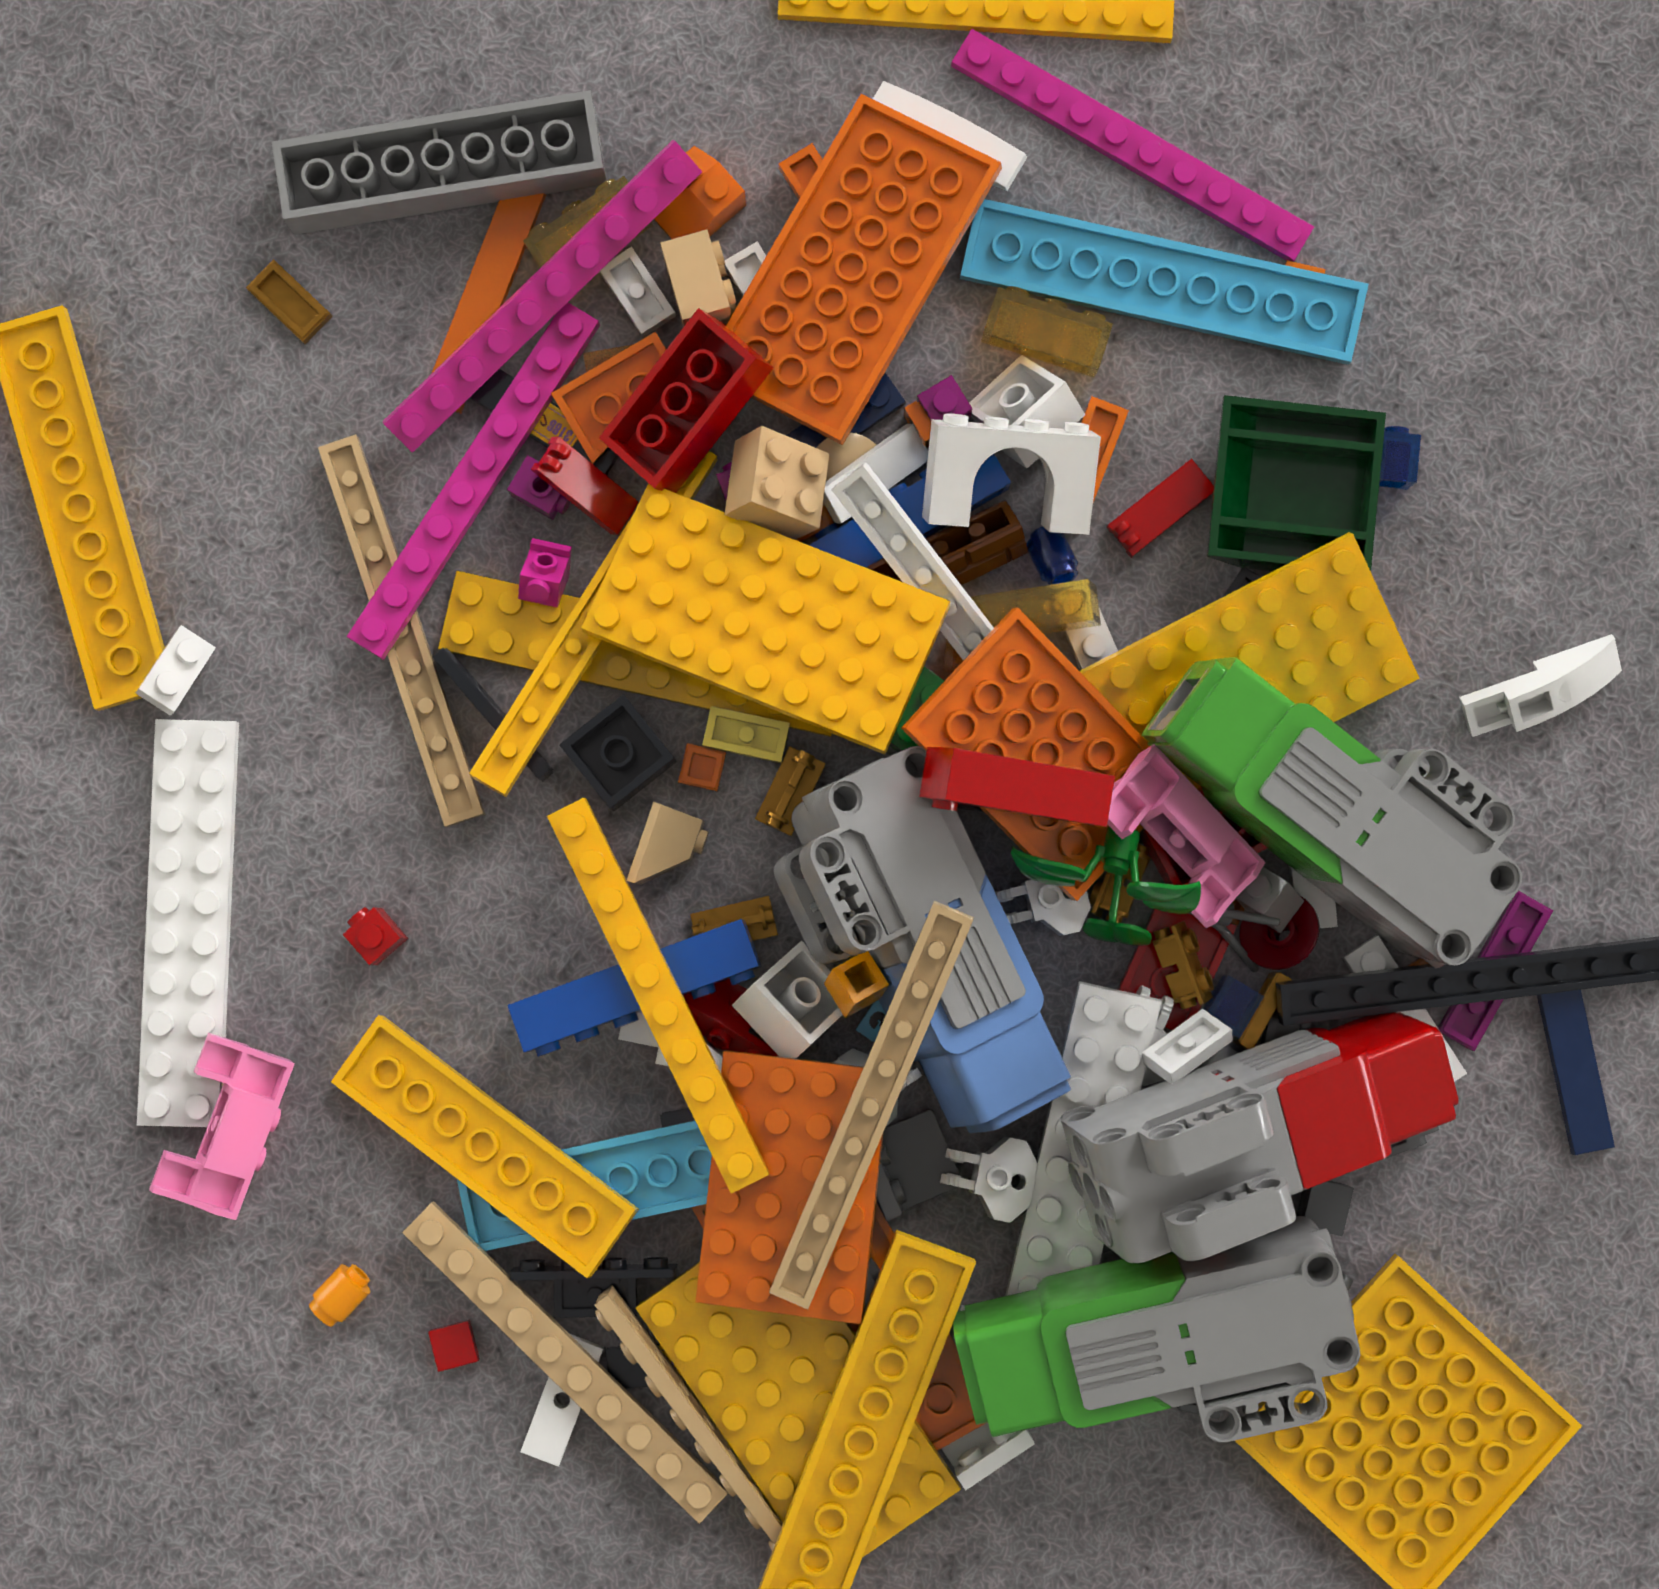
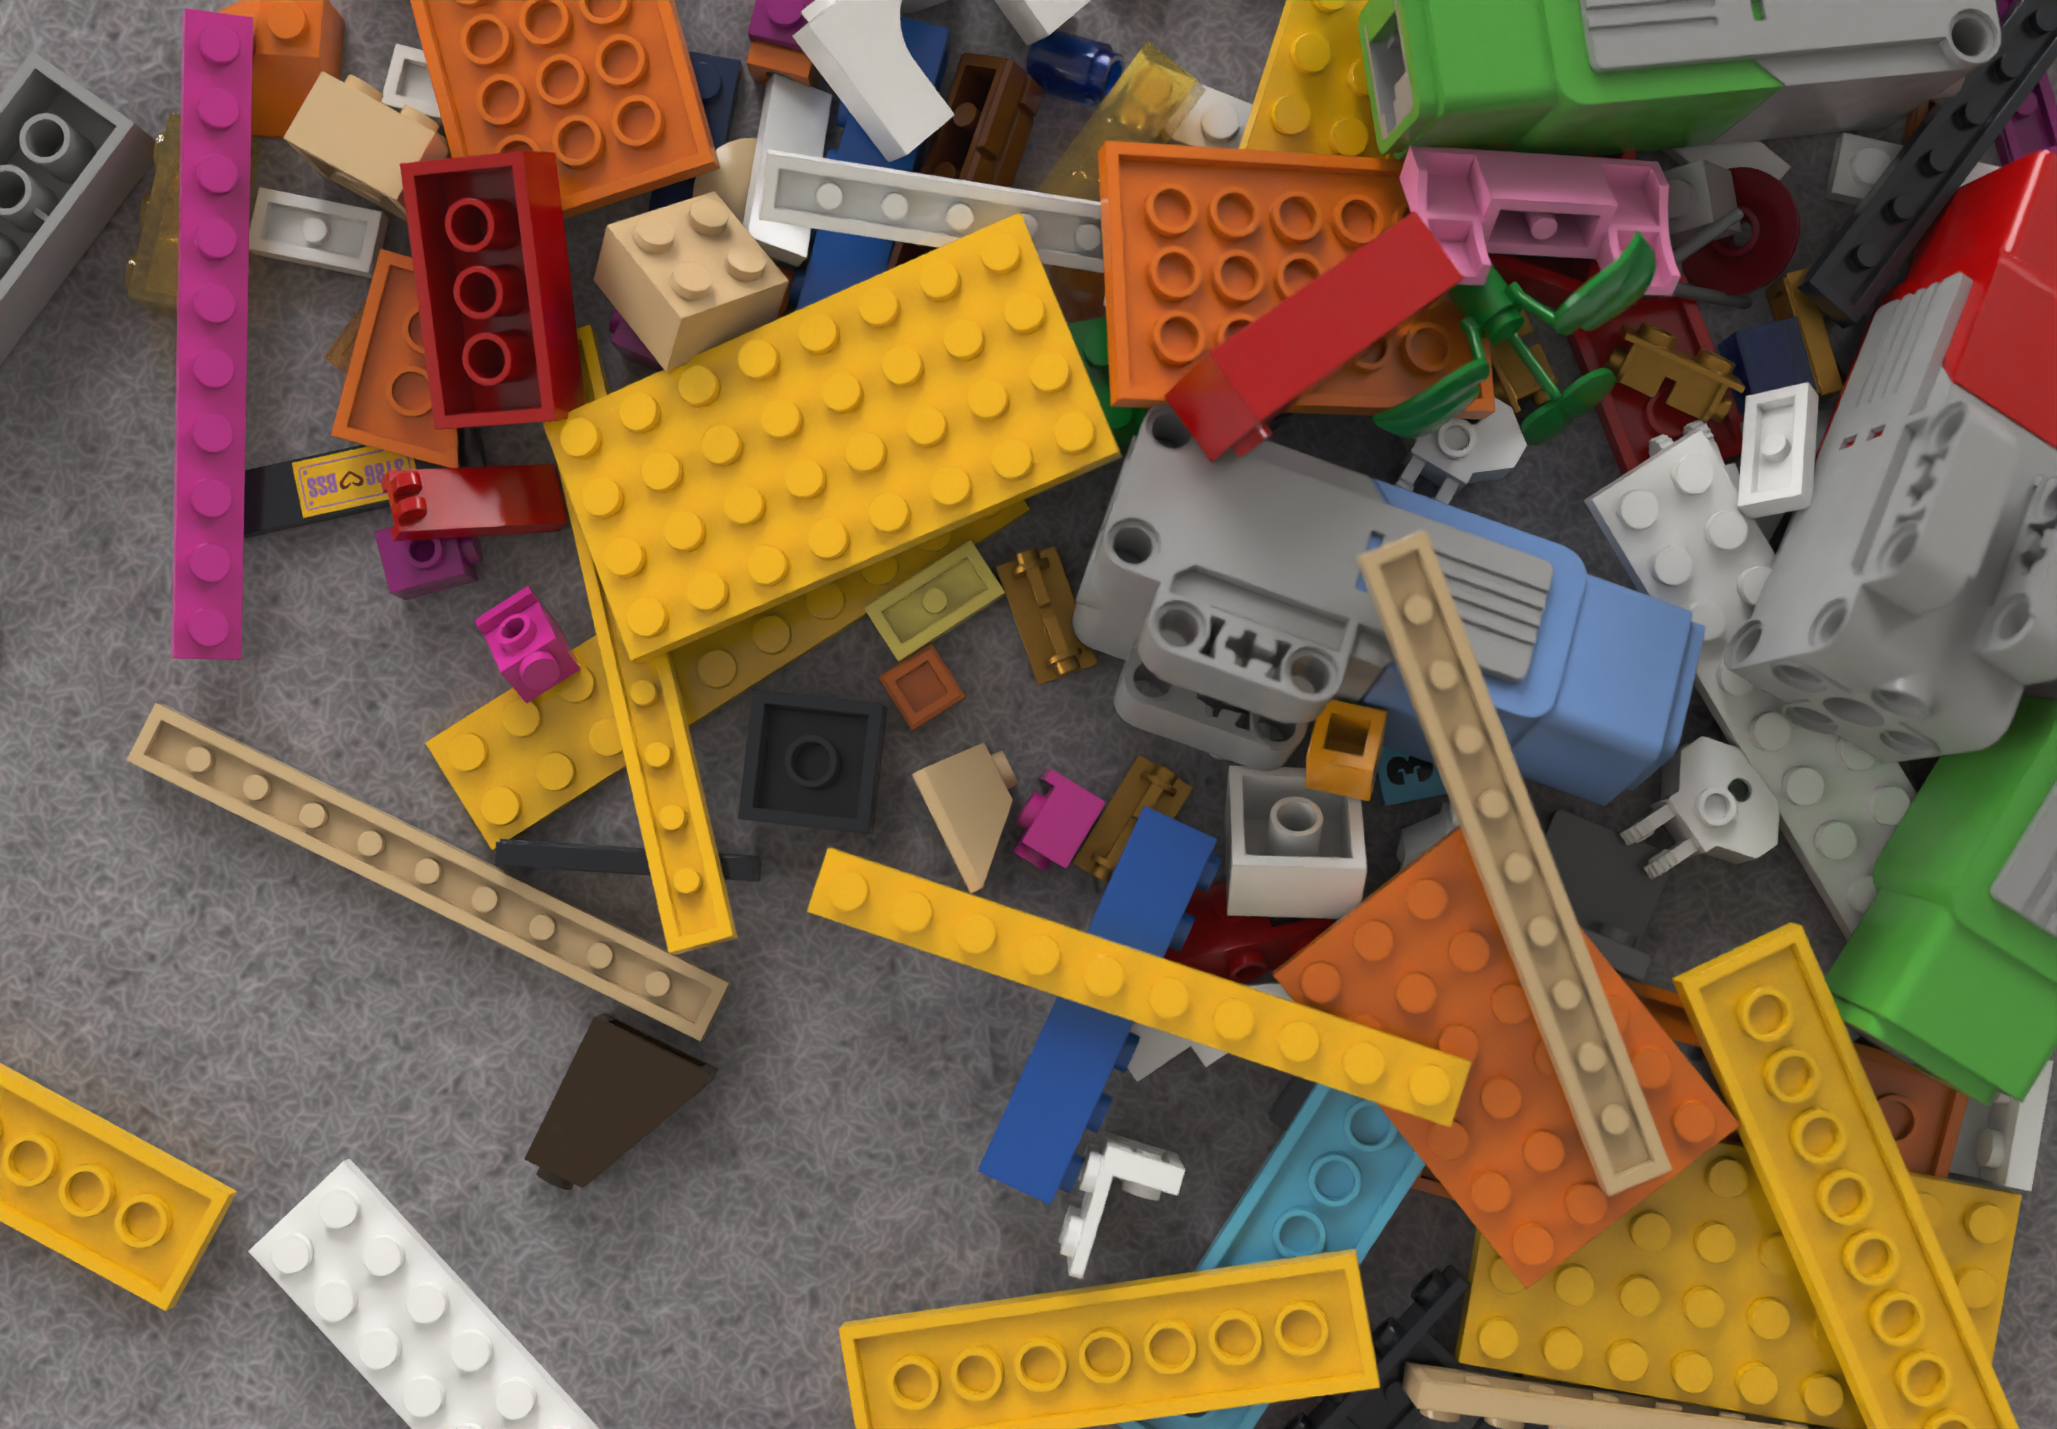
camera: 45 degrees left, 0 degrees up
(175, 670) = (215, 1173): white plate -> none
(374, 934) = (743, 1243): red brick -> none
(379, 813) = (611, 1100): none -> dark brown slope
(473, 481) = (343, 624): dark pink plate -> none
(492, 270) = (128, 367): orange tile -> none
(581, 1078) = (1143, 1172): none -> white bracket
(699, 887) = (1056, 822): none -> dark pink brick

